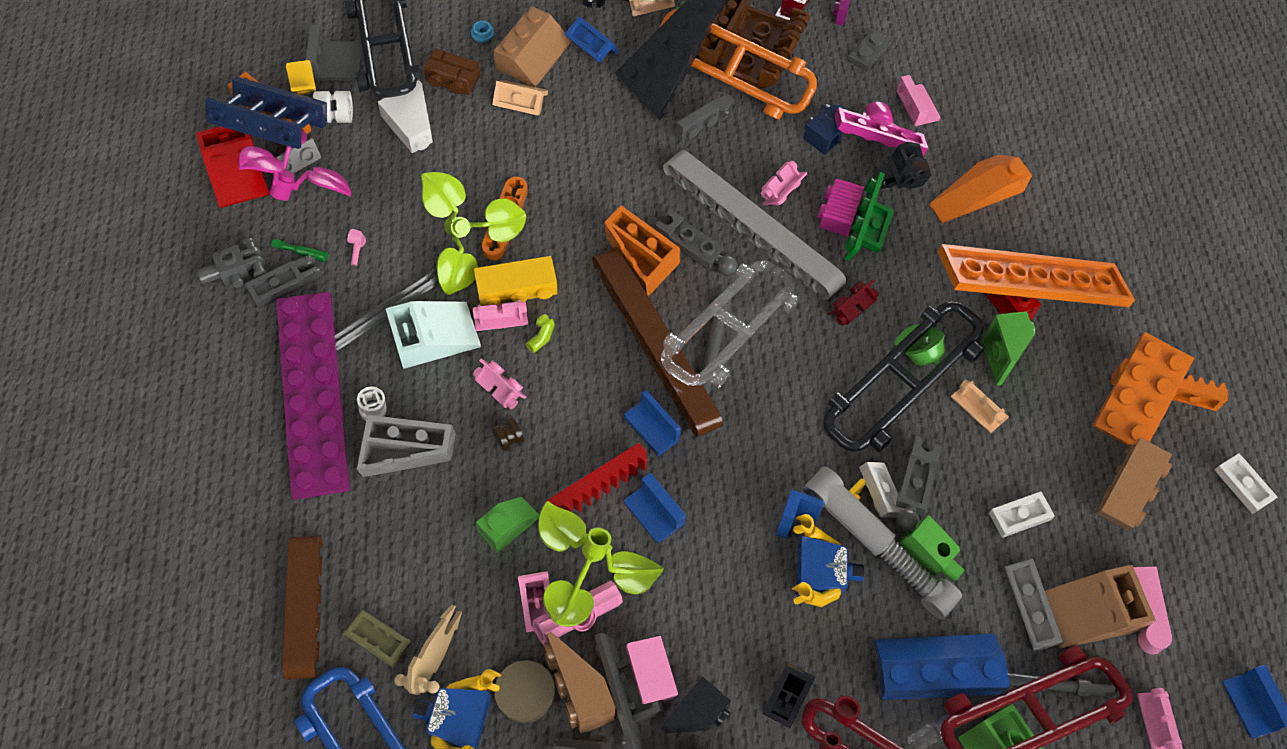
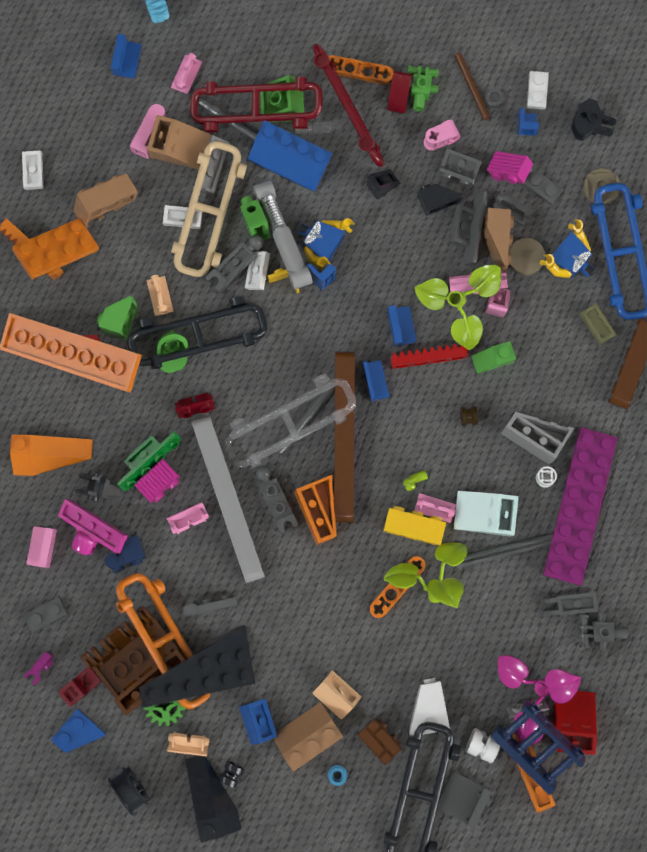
camera: 150 degrees left, 20 degrees up
(300, 250) = (549, 627): green piece -> none
(301, 77) = (500, 775): yellow bracket -> none
(358, 239) = (507, 616): bright pink hand -> none
(430, 656) = (584, 288): tan piece -> none
(492, 376) = (459, 464): bright pink hinge -> none
(652, 670) = (453, 228): bright pink panel -> none
(996, 607) = (237, 170): none -> tan bar

